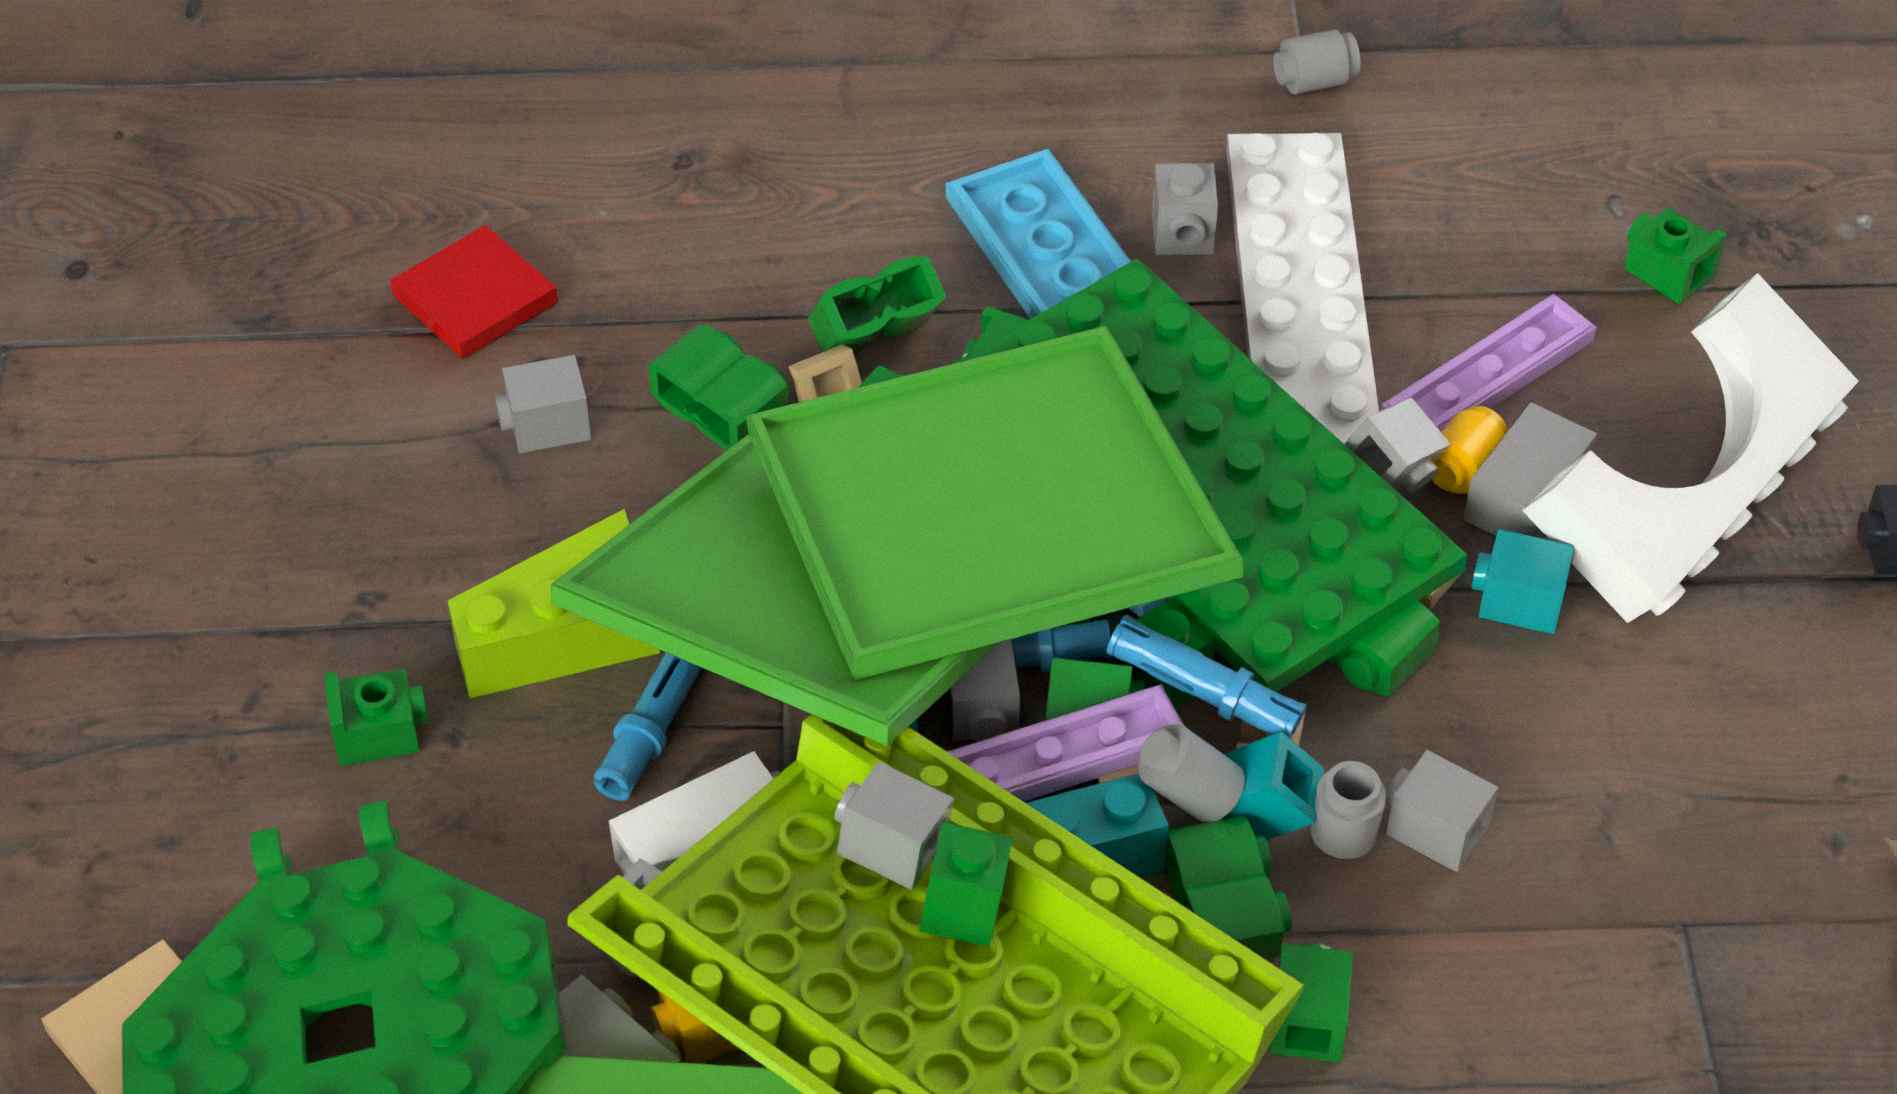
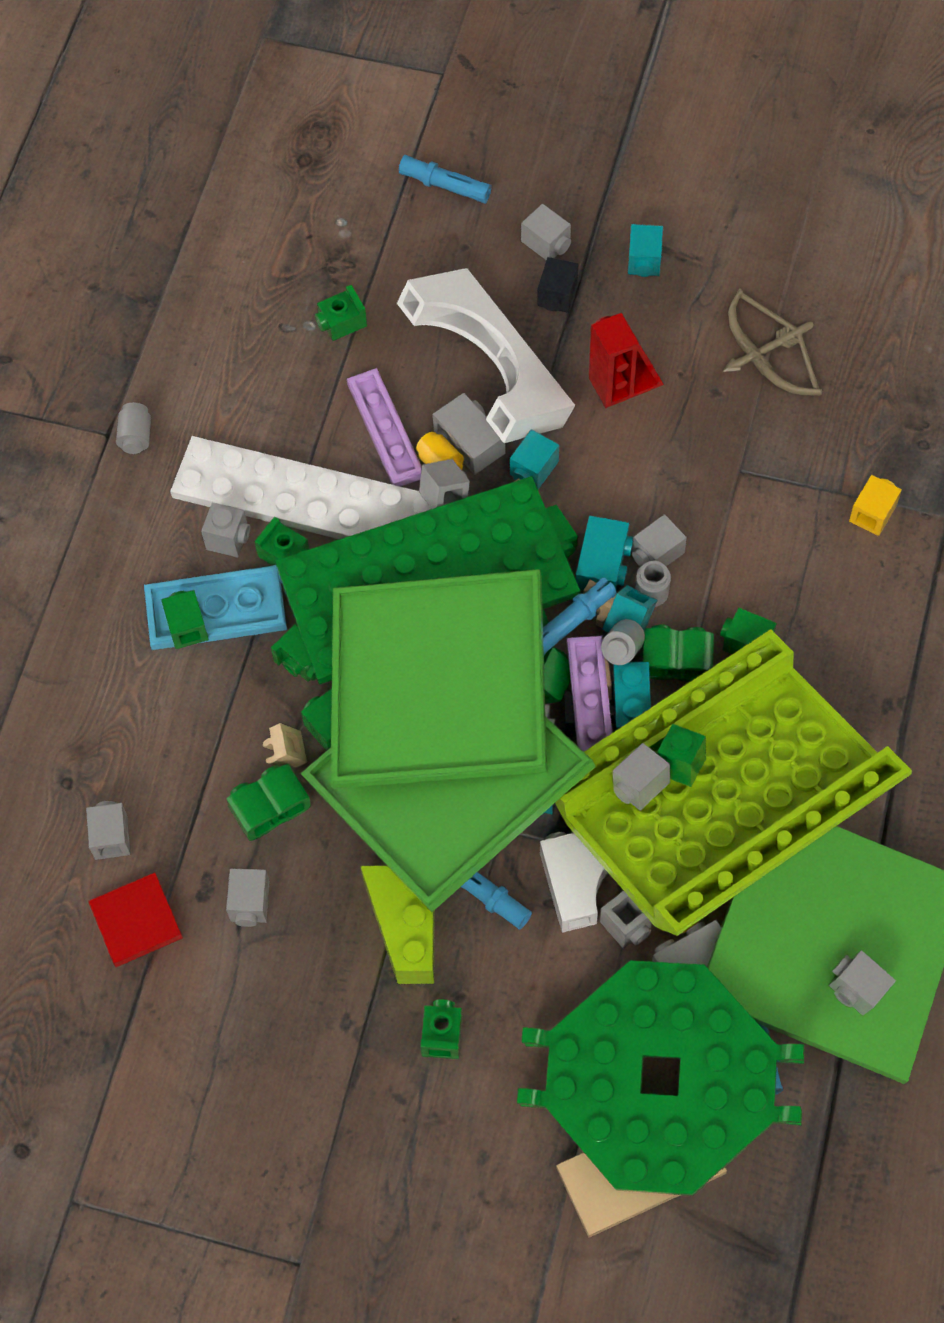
camera: 70 degrees left, 15 degrees up
(607, 213) = (108, 830): none -> light grey brick
(881, 306) = (247, 704): green brick -> none
(995, 193) = (184, 619): none -> green brick
(1196, 274) = (273, 537): none -> green brick
(1377, 721) = (603, 552): none -> teal brick
(1789, 636) = (618, 362): none -> red wedge

